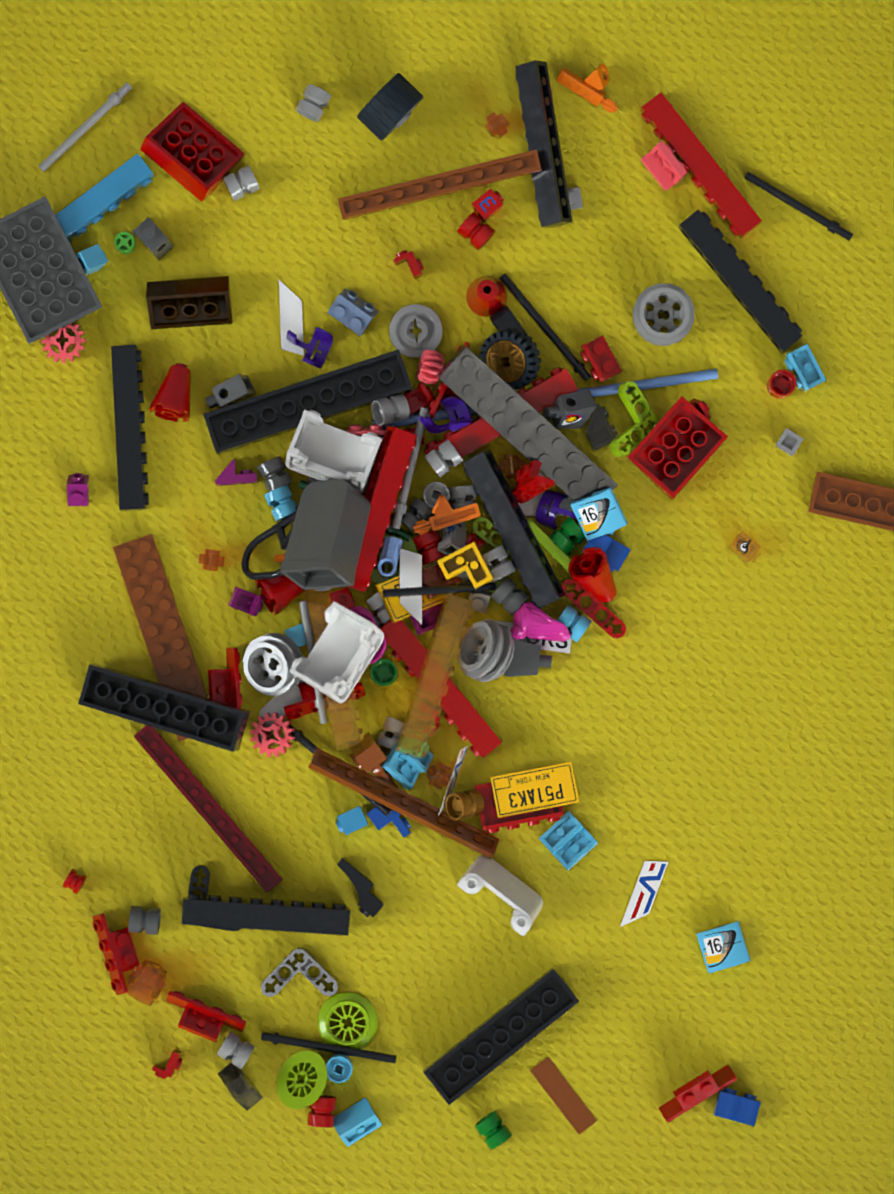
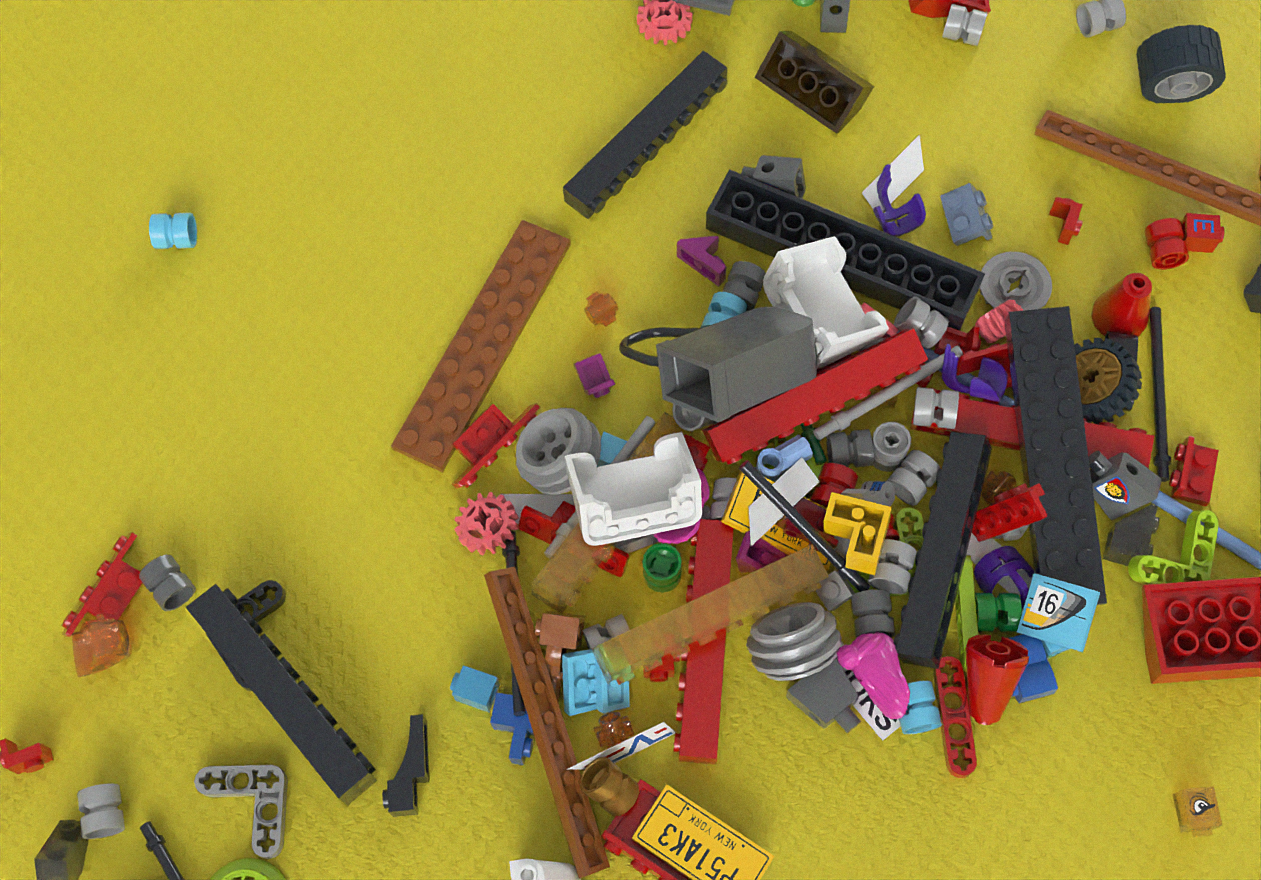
camera: 50 degrees right, 20 degrees down
(74, 881) = (148, 481): red wheel -> none
(78, 490) = (543, 145): magenta bracket -> none
(164, 707) = (410, 395): black brick -> none
(173, 396) = (716, 139): red cone -> none
(202, 1019) = (107, 742): red bracket -> none
(208, 808) = (348, 541): dark red plate -> none
(278, 592) = (638, 392): red cone -> none
(446, 516) = (883, 465): orange piece -> none

